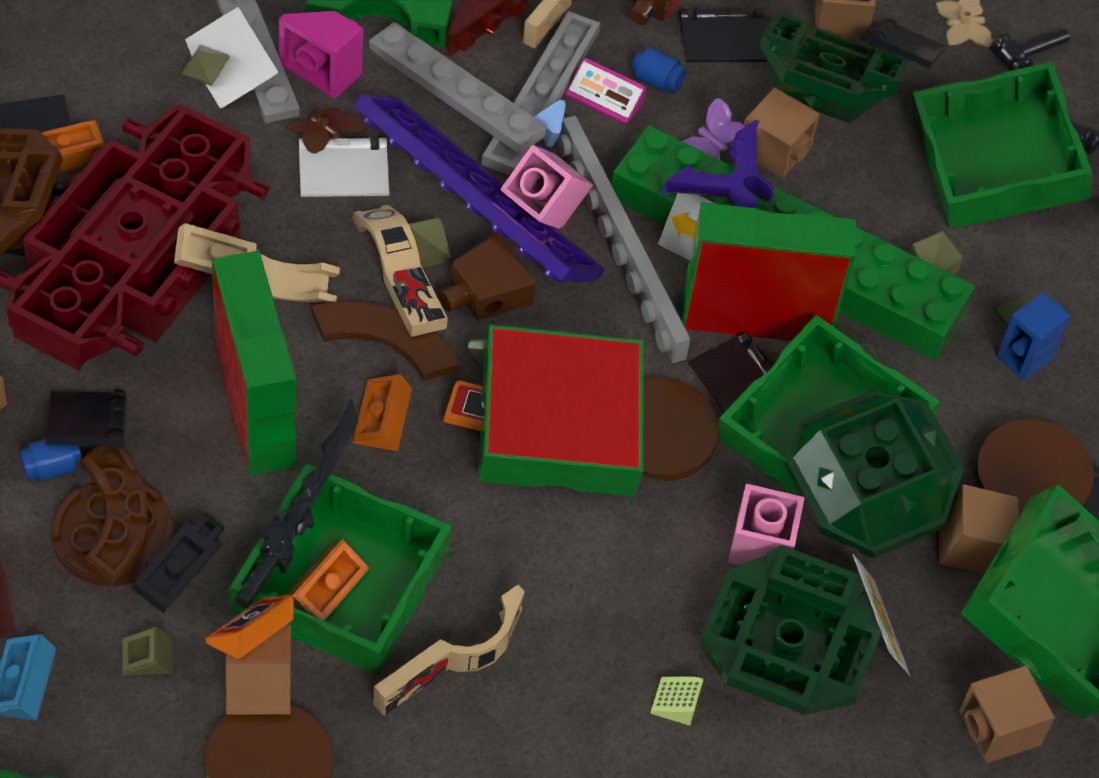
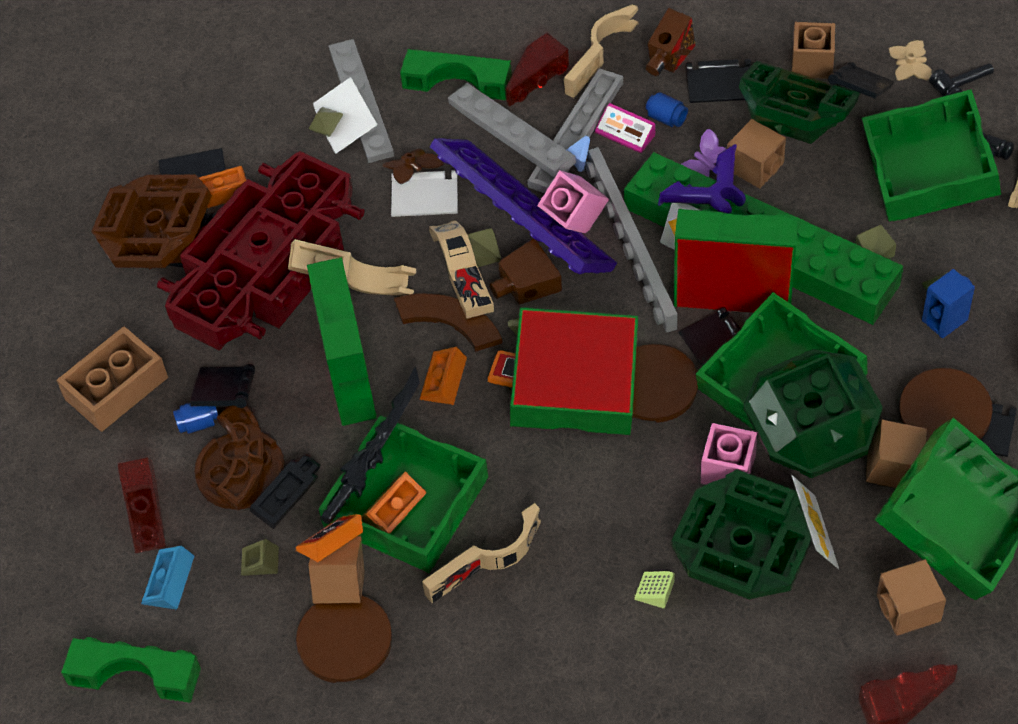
camera: 15 degrees right, 0 degrees up
(322, 49) = (410, 106): dark pink slope -> none

